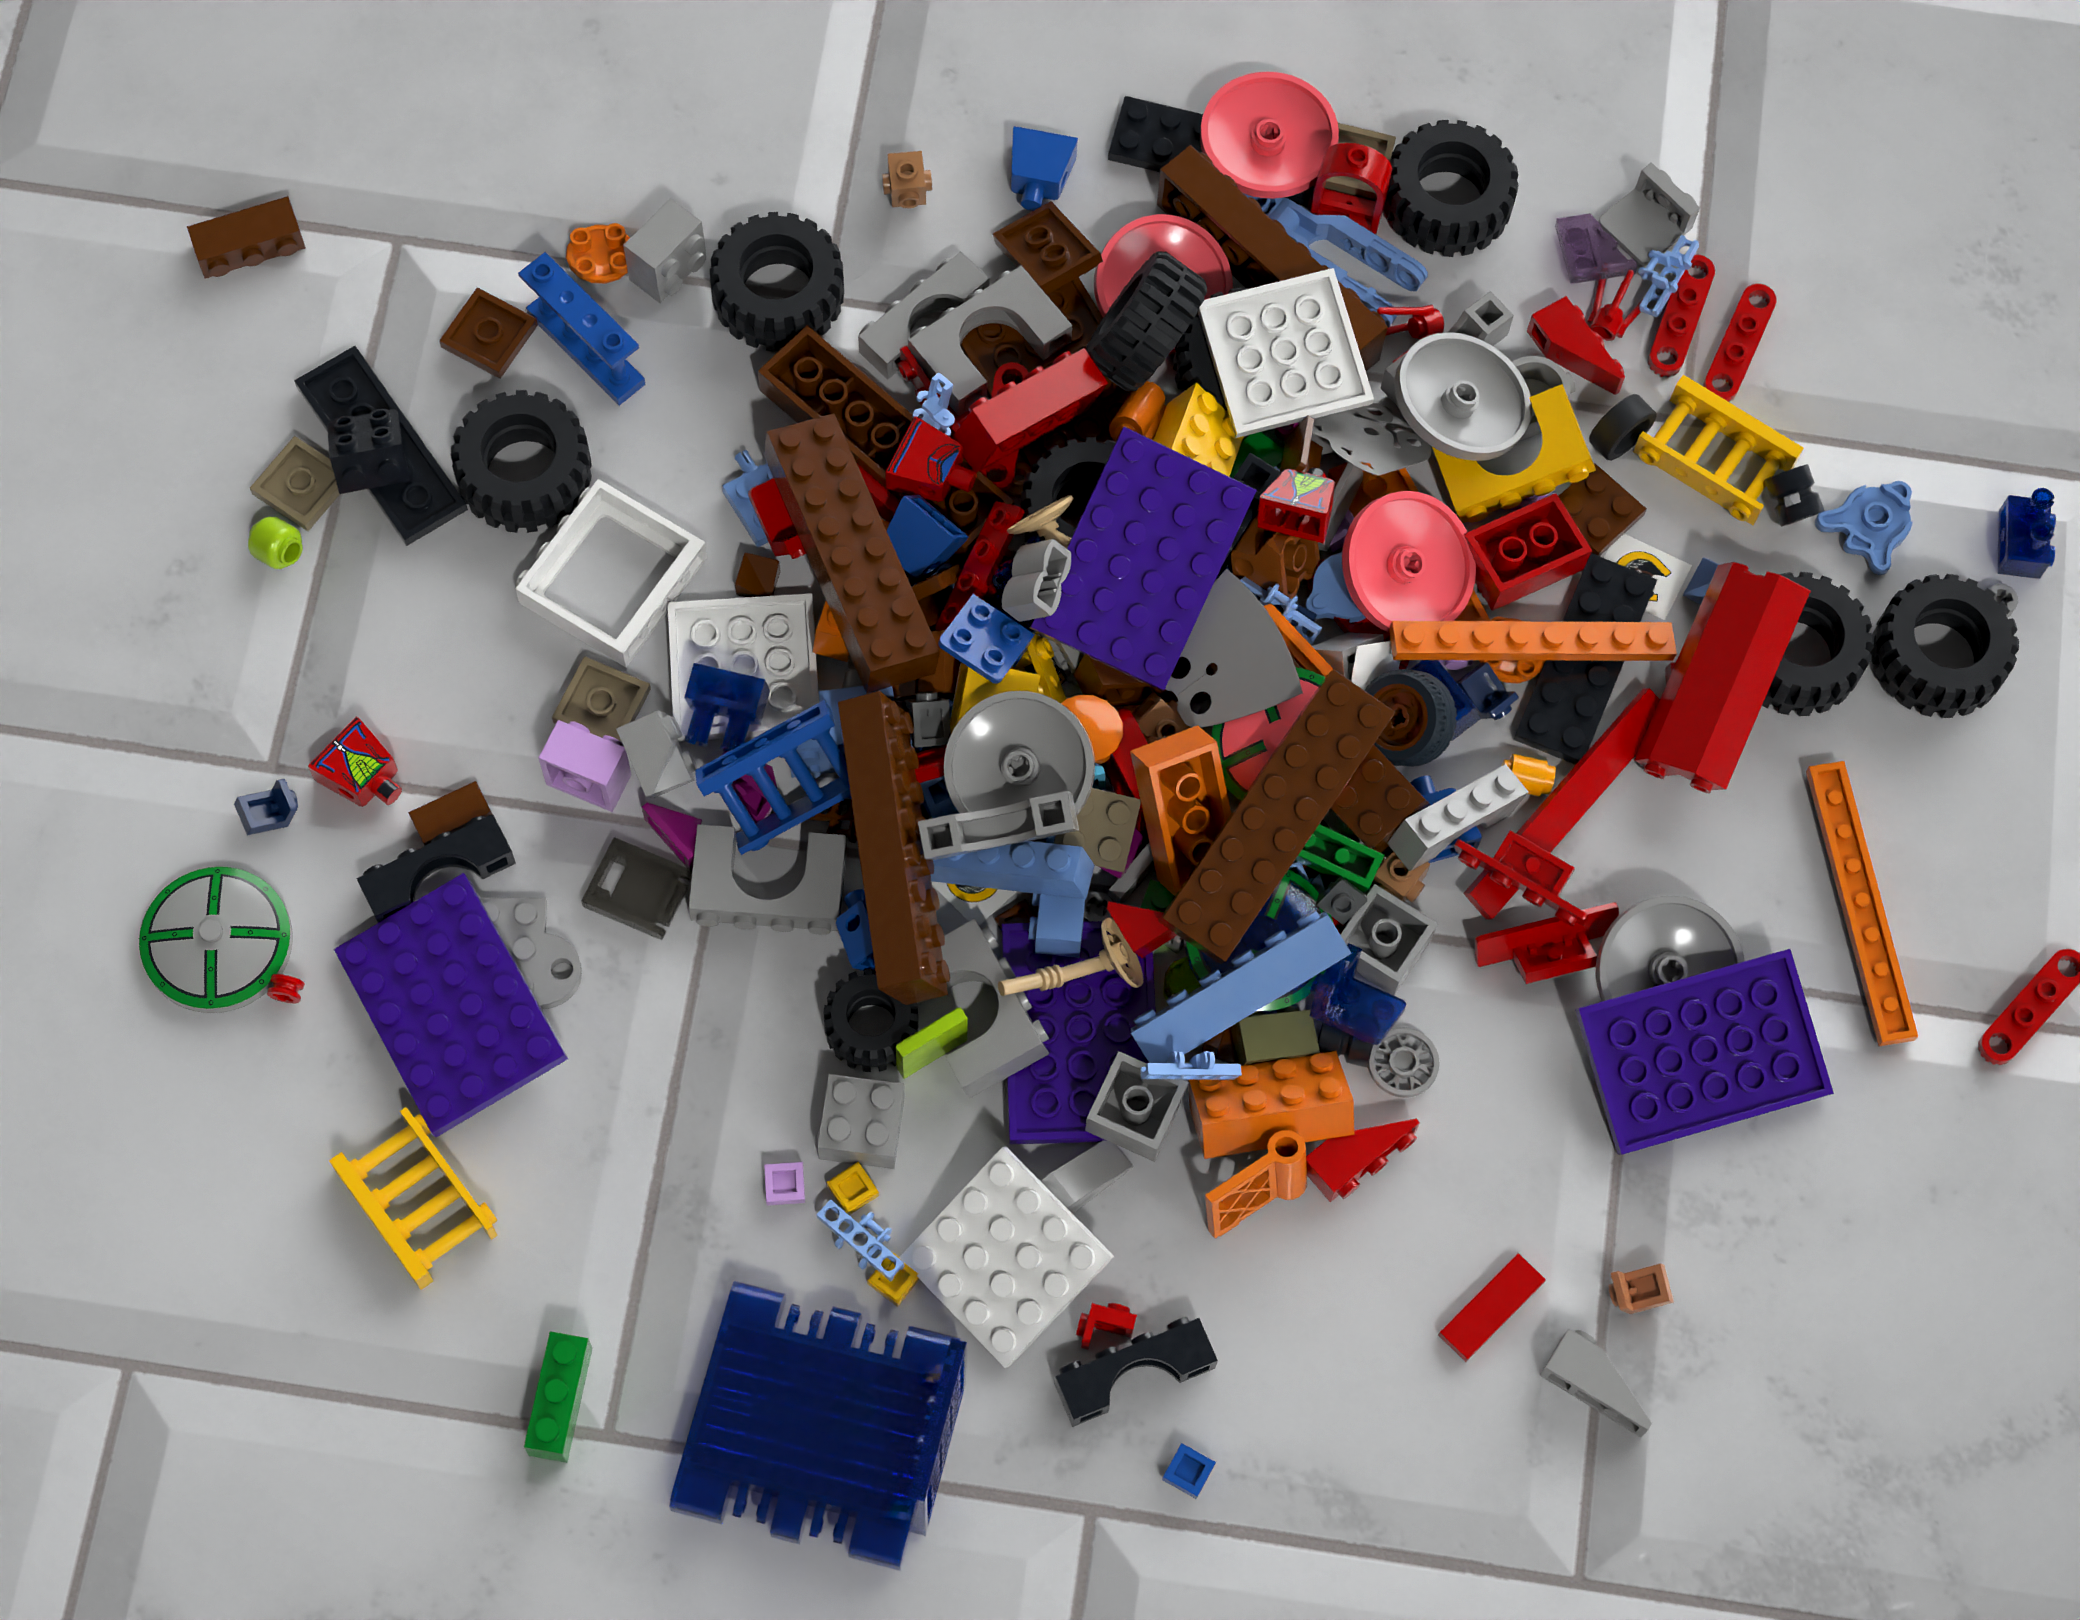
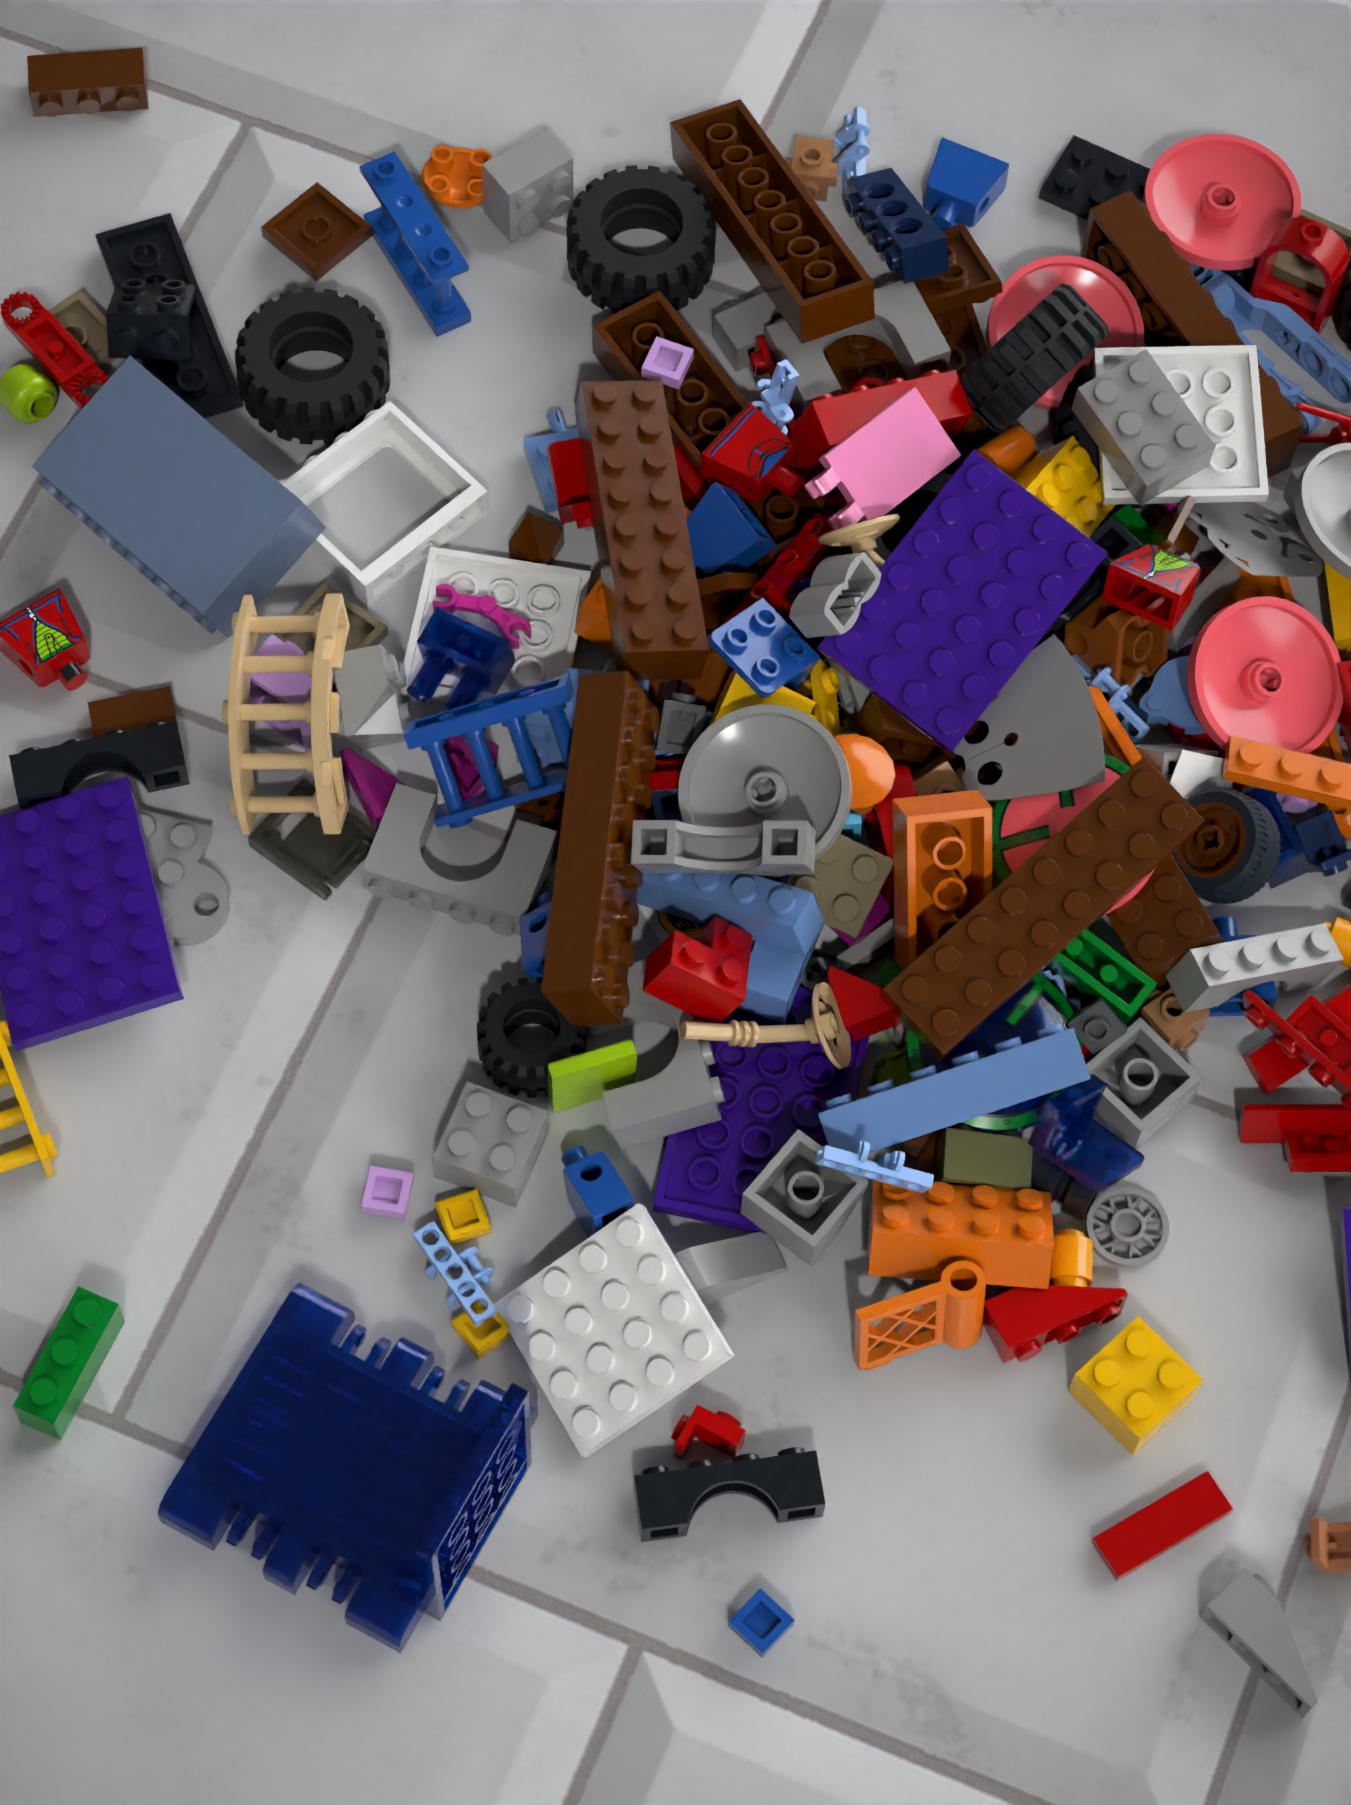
camera: 15 degrees right, 5 degrees down
(292, 499) = (52, 347): none -> red plate
(438, 614) = (176, 497): none -> sand blue brick
(621, 783) = (320, 712): none -> tan fence
(731, 647) = (486, 607): none -> dark pink piece
(832, 393) = (667, 362): none -> lavender plate
(889, 240) = (773, 221): none -> reddish brown brick
(940, 163) = (853, 160): none -> light blue piece
(960, 1142) = (594, 1189): none -> blue torso
(996, 218) = (897, 225): none -> dark blue brick
(1004, 933) = (701, 973): none -> red brick
(1045, 447) = (884, 460): none -> bright pink tile
(1256, 365) = (1143, 427): none -> light grey brick
(1368, 1103) = (1072, 1259): none -> light orange brick
(1443, 1196) = (1135, 1385): none -> yellow brick

